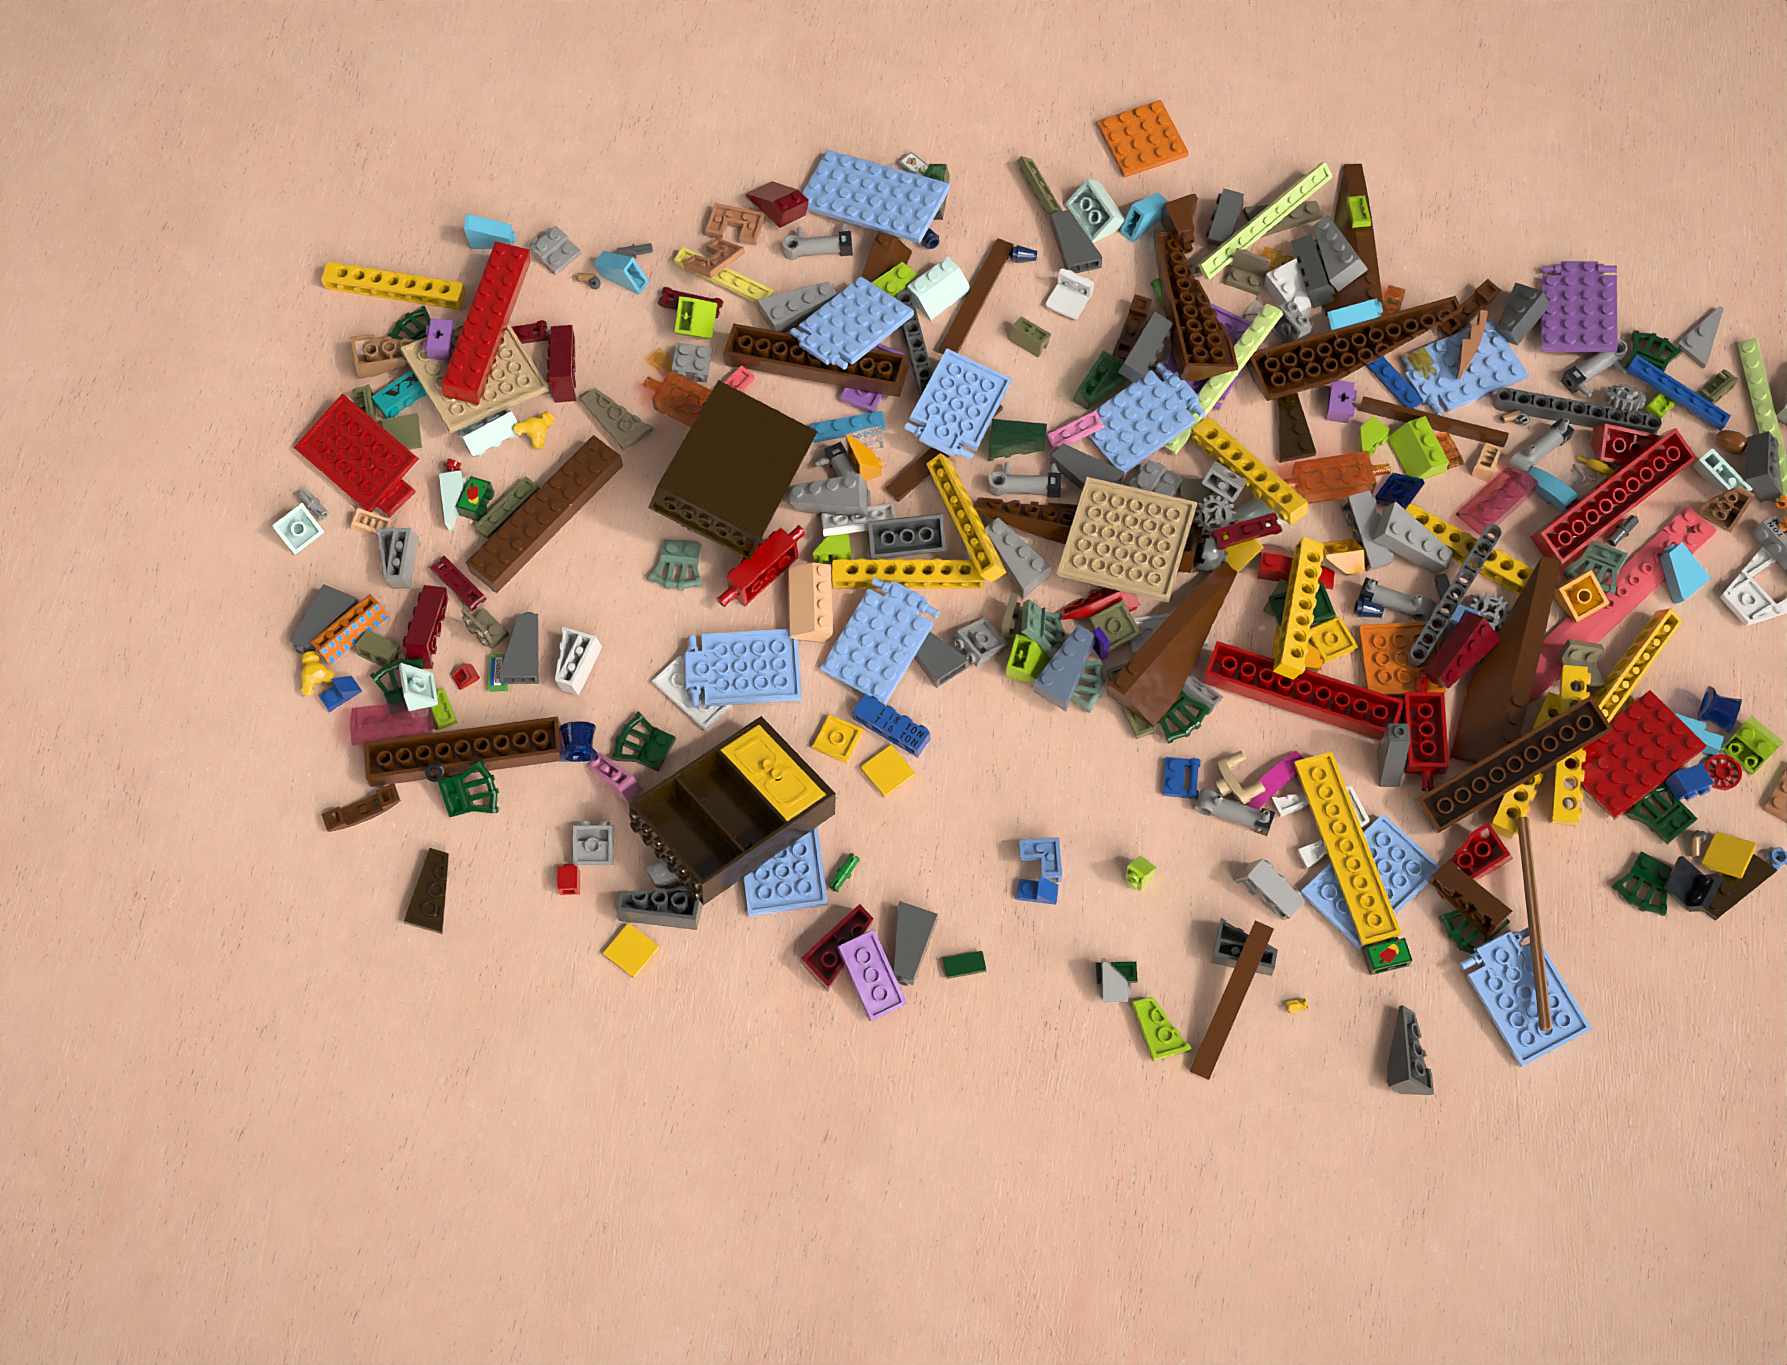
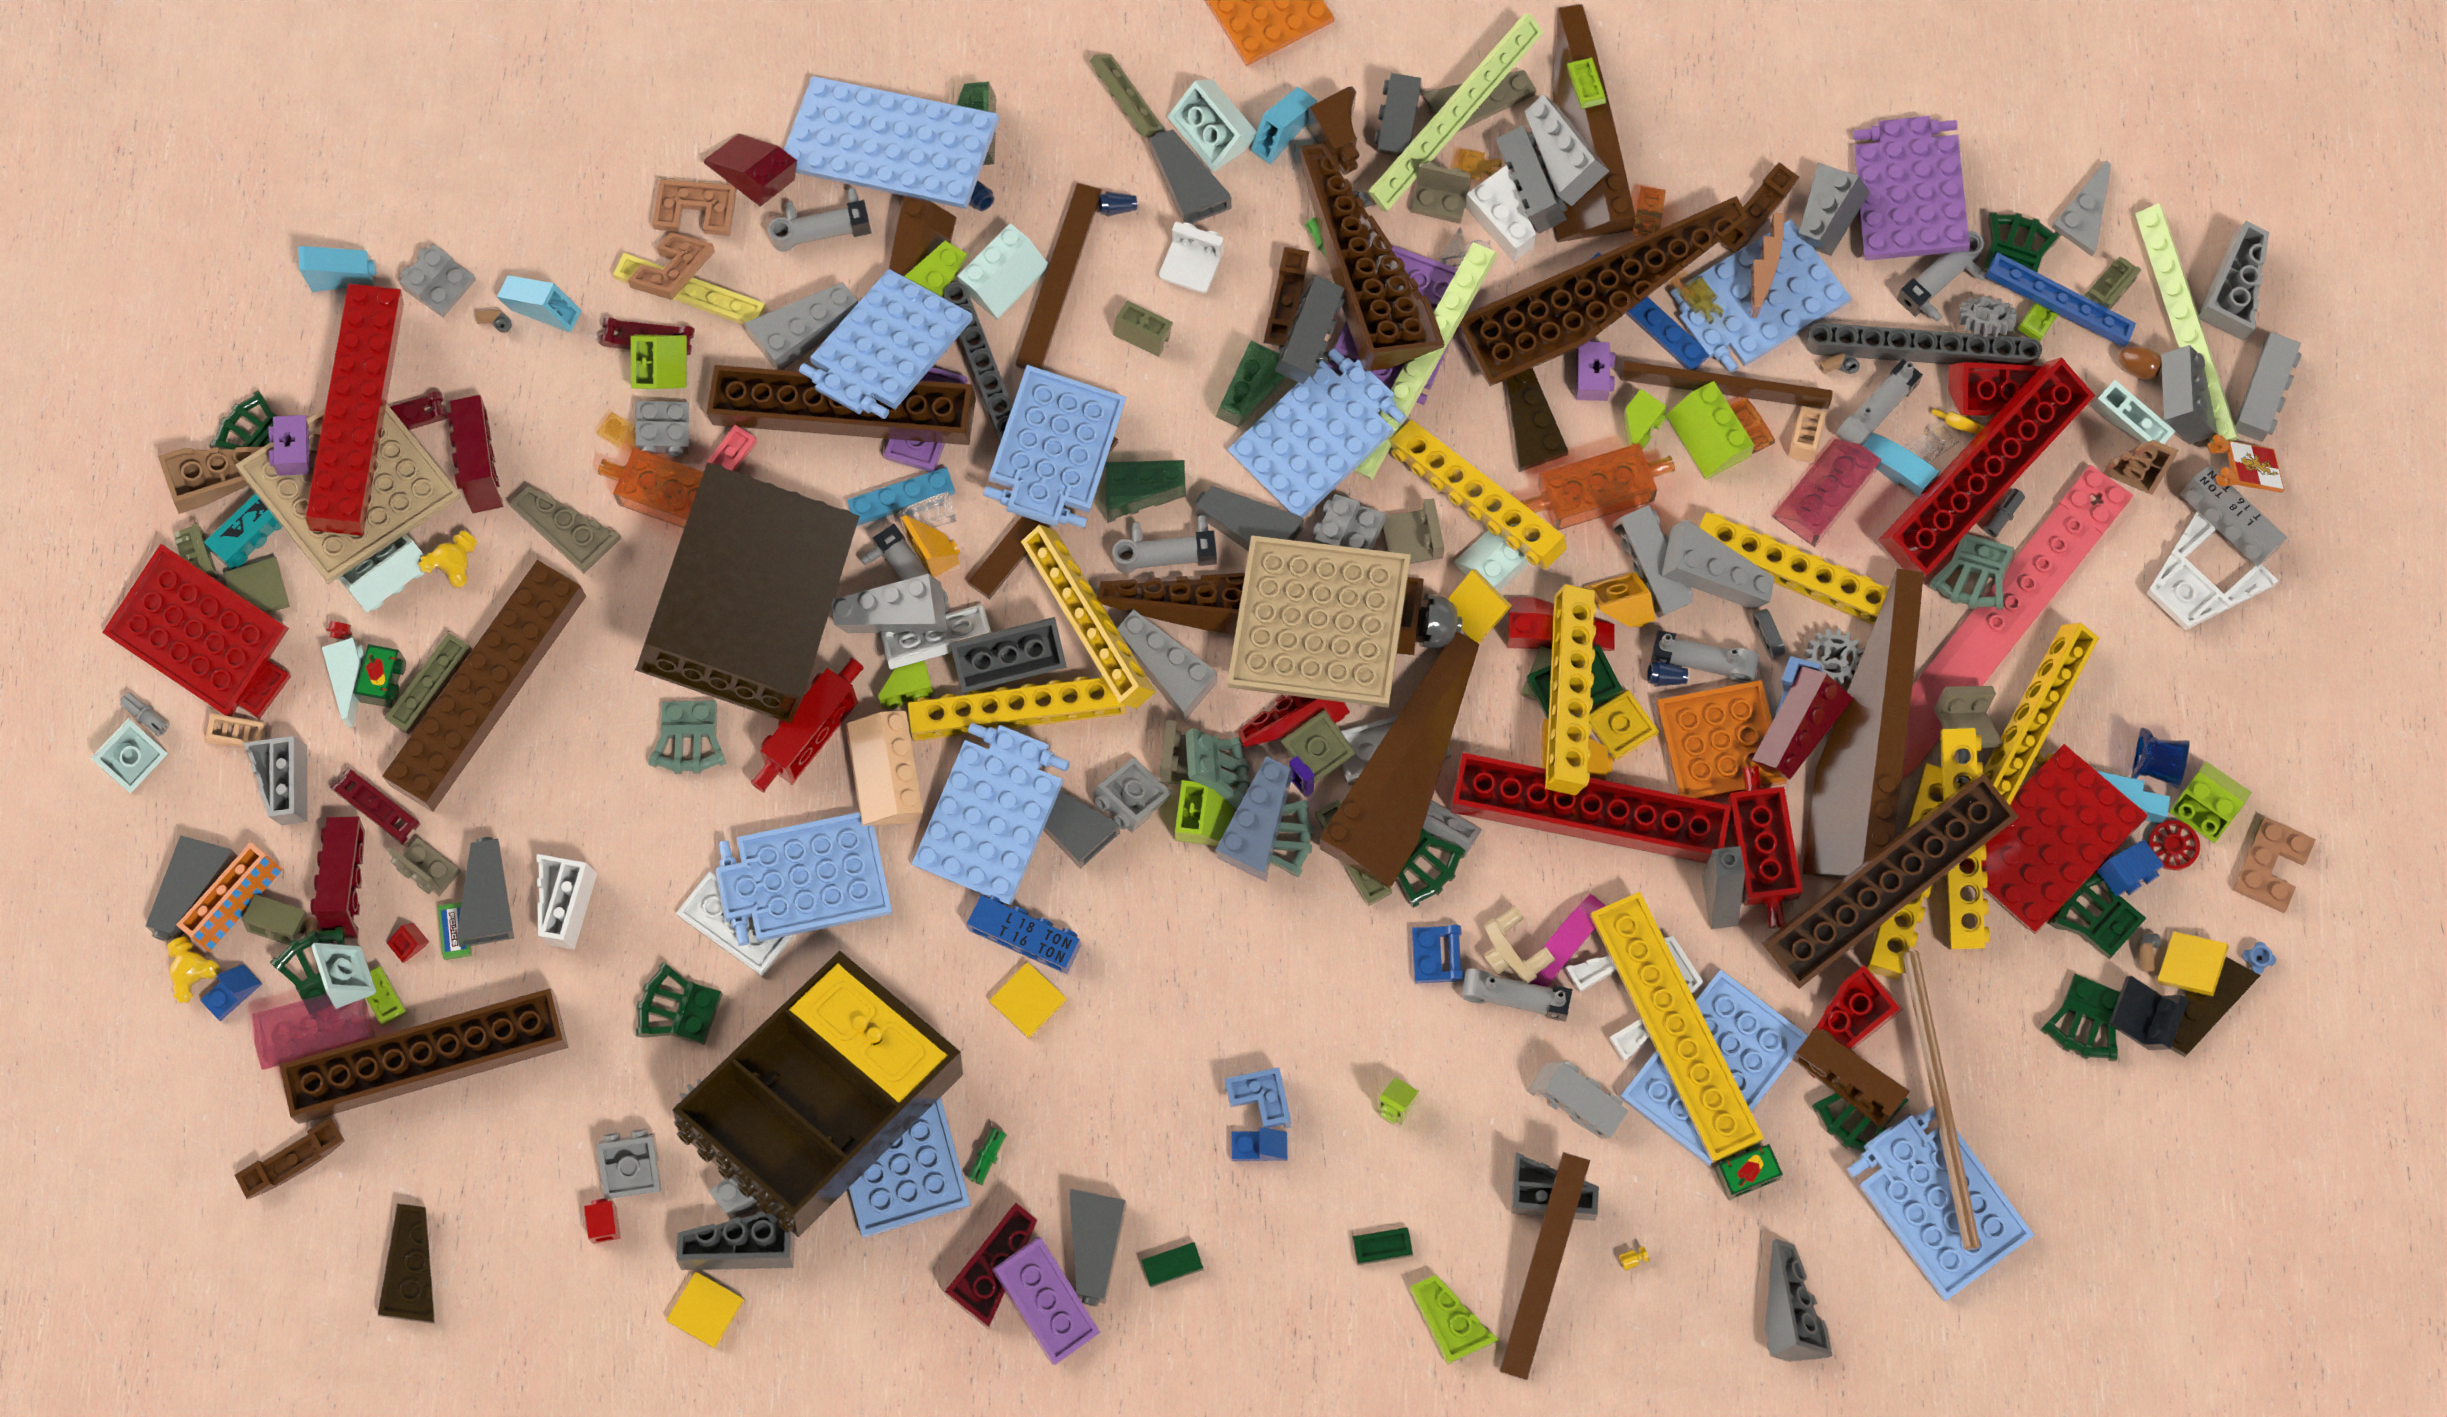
camera: 10 degrees left, 5 degrees up
(365, 282) = (219, 373): yellow brick -> none
(440, 773) = (387, 1085): black bush -> none
(457, 795) = (426, 1124): dark green plate -> none
(578, 742) = (585, 1020): clear blue hat -> none
(615, 778) = (645, 1063): bright pink slope -> none
(635, 250) = (553, 266): dark grey axle -> none
(837, 738) = (951, 962): yellow tile -> none
(913, 164) = (941, 85): tile -> none
(1075, 430) = (1226, 463): bright pink tile -> none
(1113, 983) = (1381, 1265): light grey slope -> none
(1207, 515) = (1449, 566): light grey gear -> none
(1224, 482) = (1445, 519): light grey brick -> none
(1246, 531) = (1485, 587): dark red plate -> none
(1291, 324) = (1512, 268): light grey plate -> none
(1355, 314) = (1598, 240): medium azure slope -> none
(1399, 489) = (1689, 495): clear blue tile -> none
(1449, 602) = (1786, 630): dark grey beam -> none
(1580, 596) = (1956, 618): light orange slope -> none
(1682, 572) = (2091, 565): medium azure slope -> none

